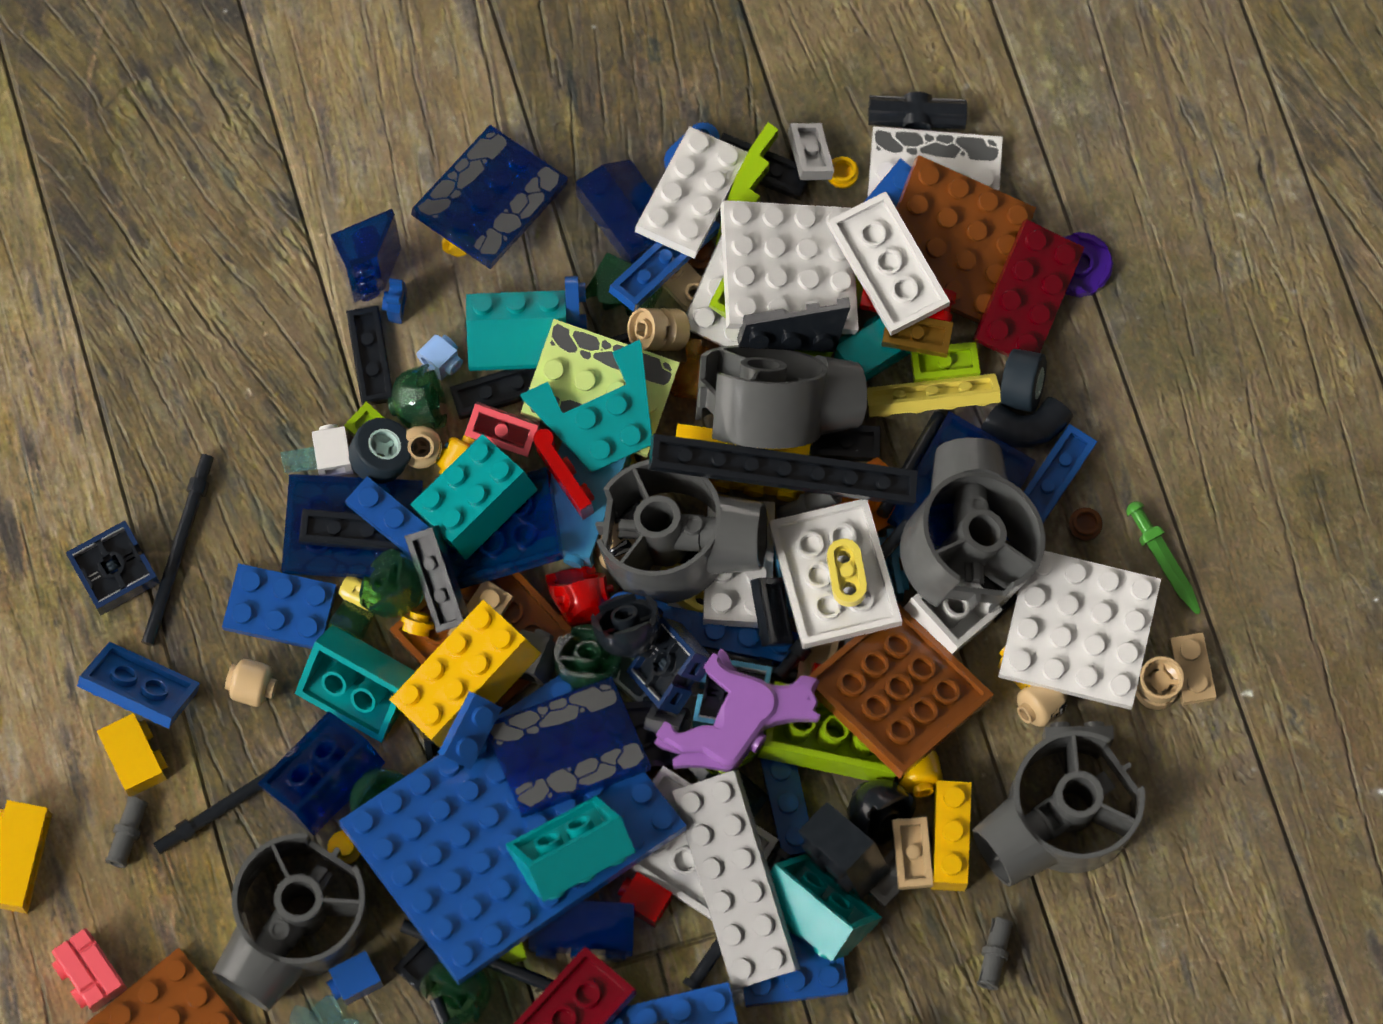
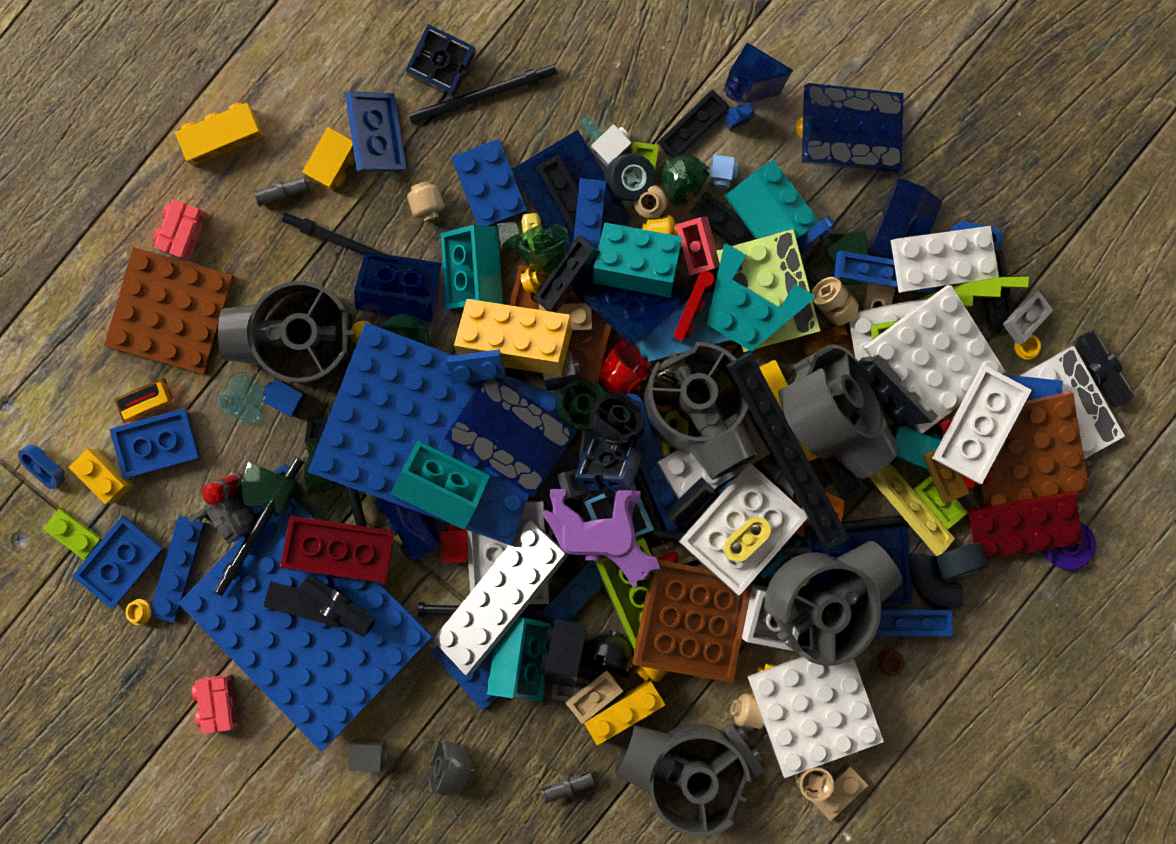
camera: 60 degrees right, 15 degrees up
(1152, 537) = (911, 711): bright green sword -> none

